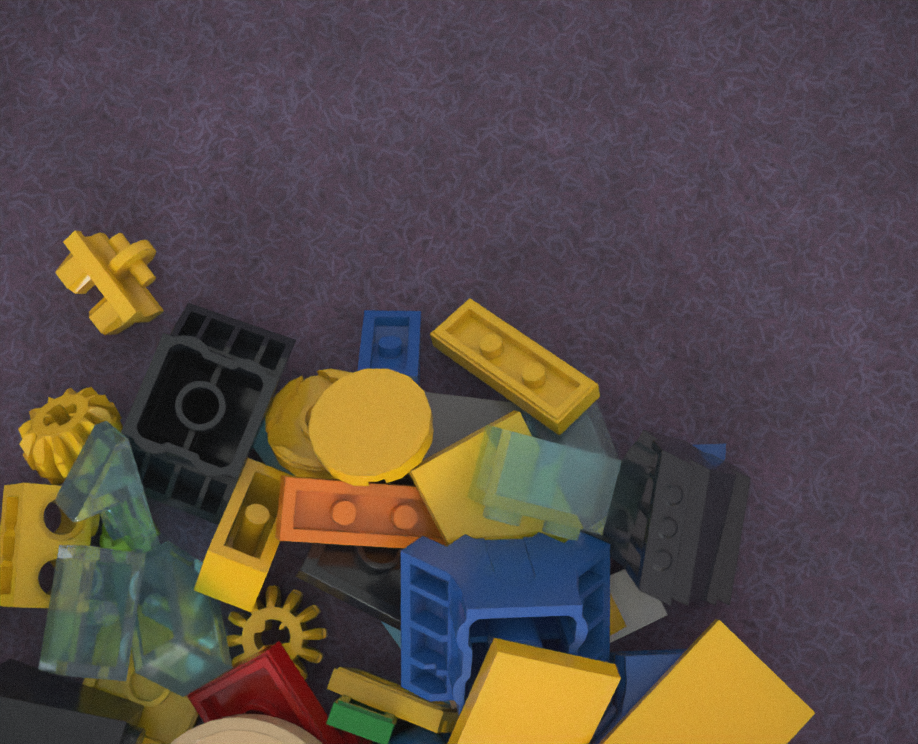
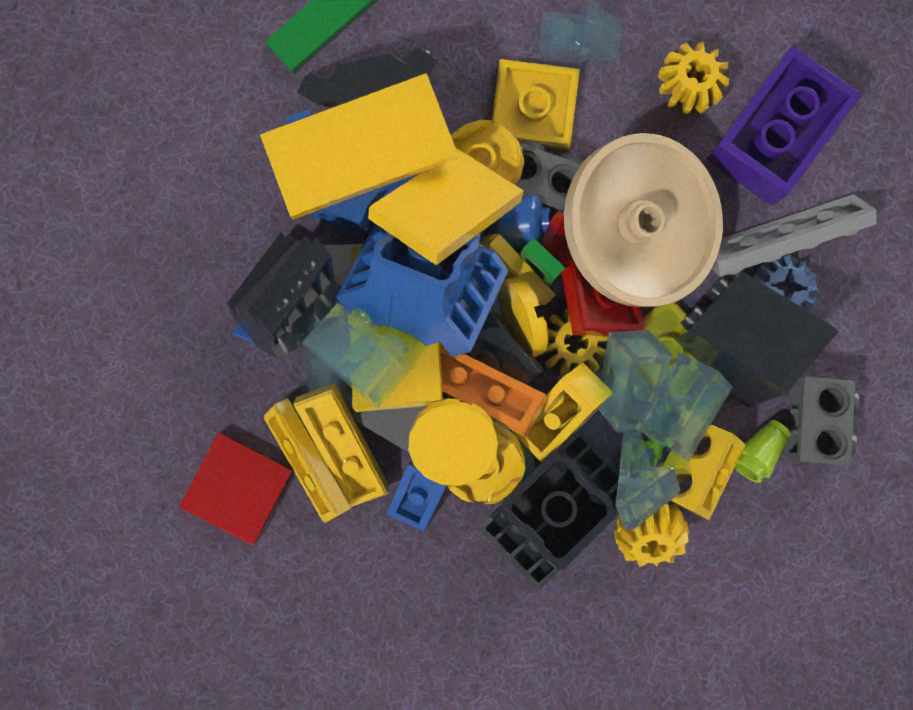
camera: 155 degrees left, 5 degrees up
(118, 273) = (577, 634): yellow hips -> none
(366, 642) = (518, 312): none -> yellow tile
(551, 327) = (306, 461): none -> yellow tile
(622, 257) = (236, 488): none -> red tile

